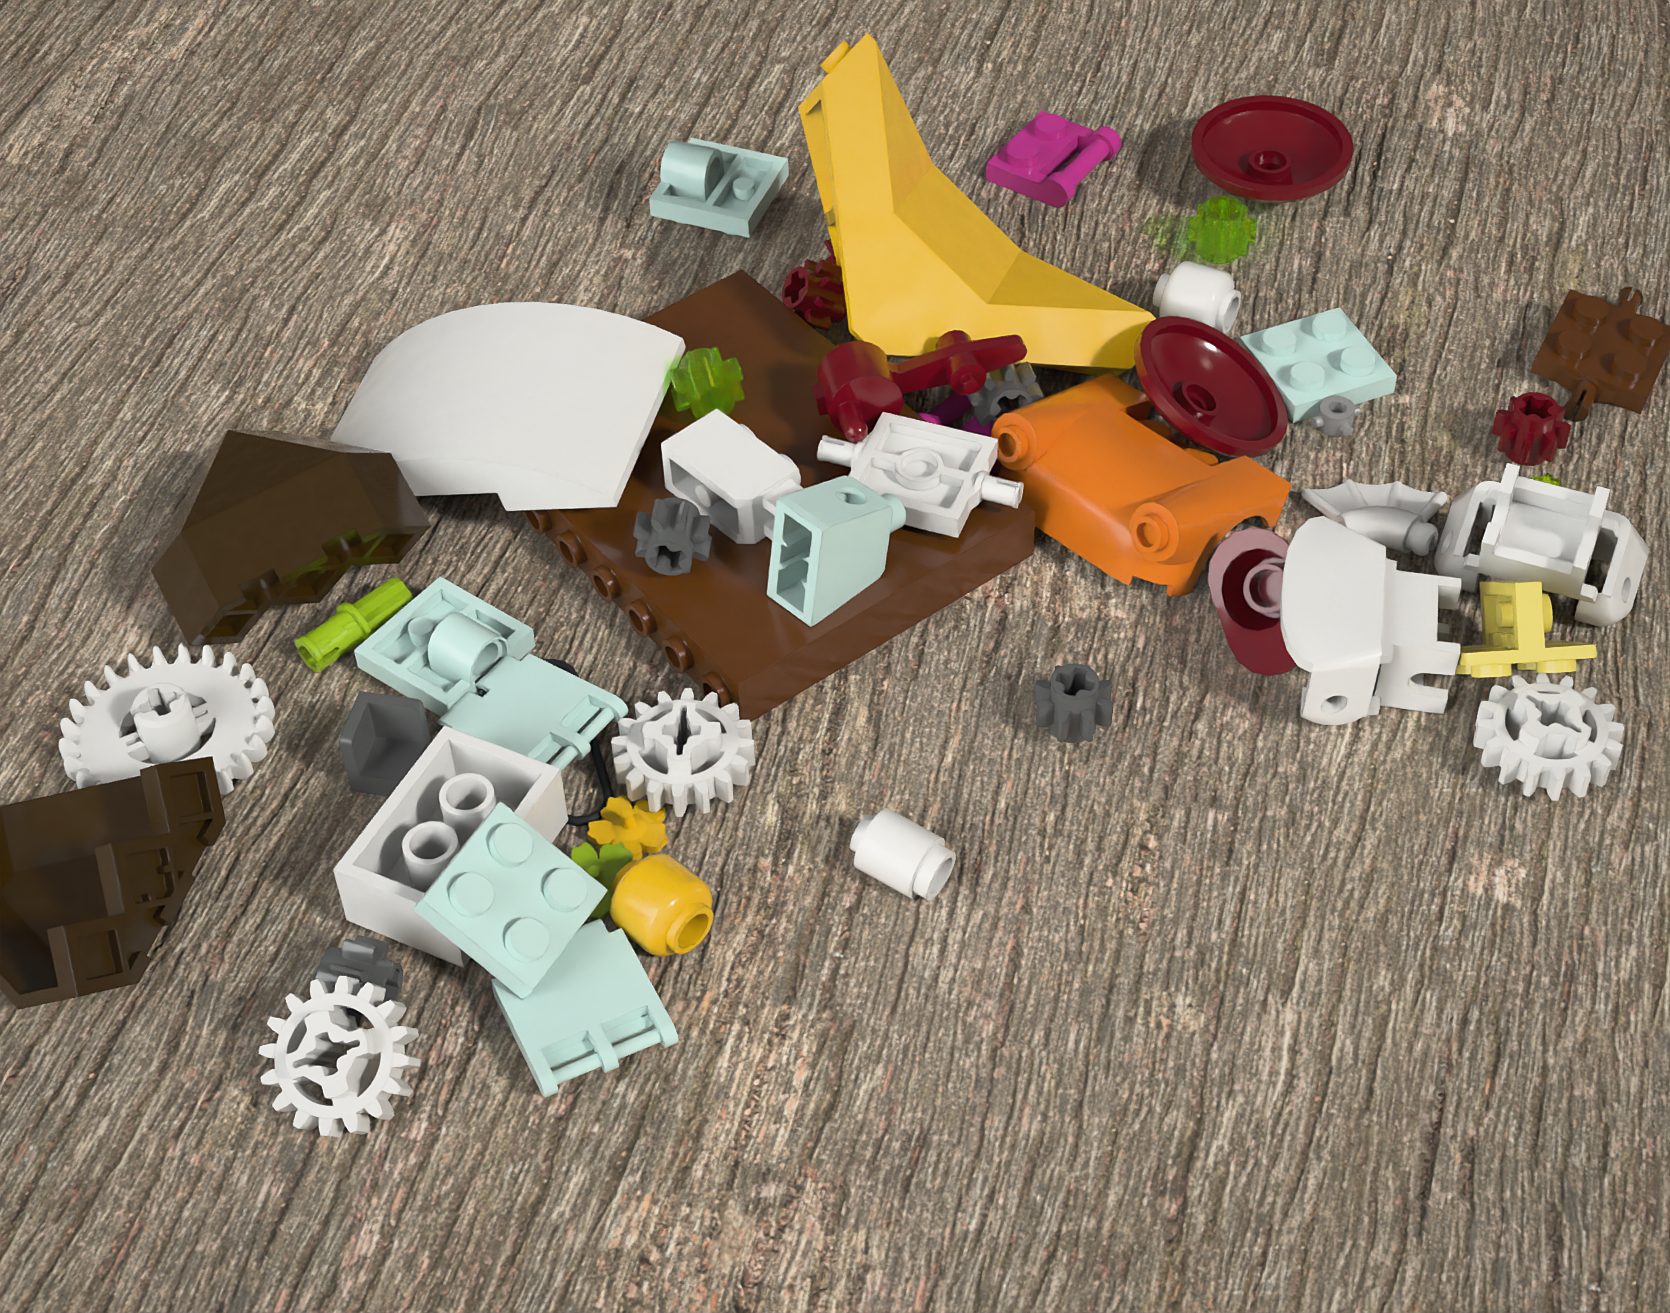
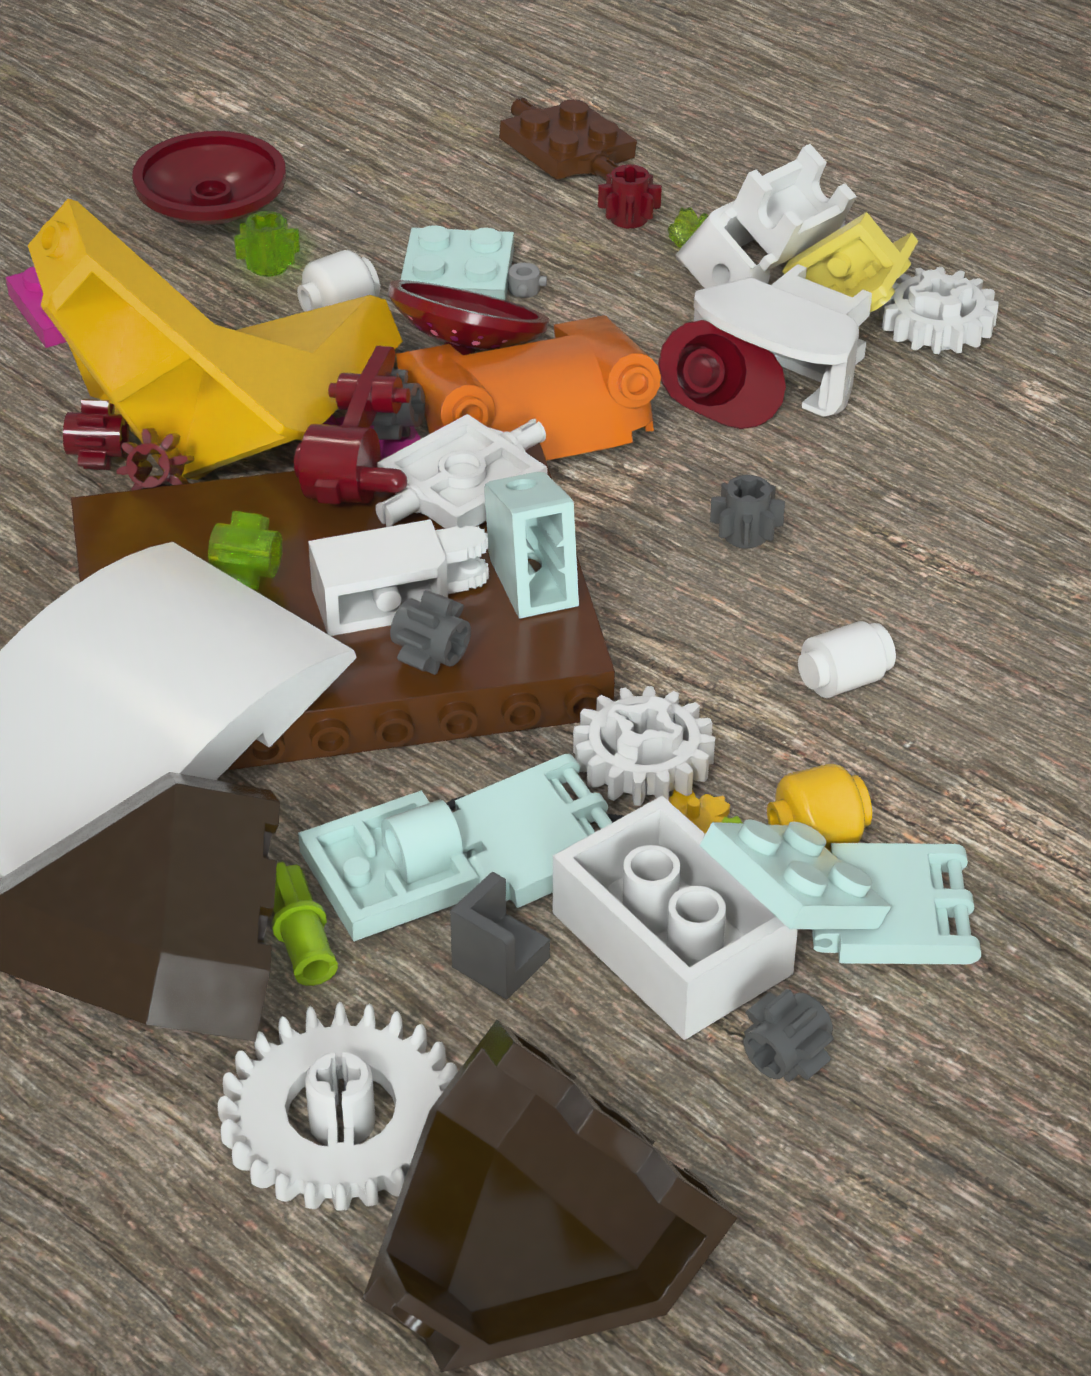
camera: 65 degrees left, 5 degrees down
(316, 1036) = (882, 1067): white gear -> none
(1382, 512) = (651, 299): white arm -> none

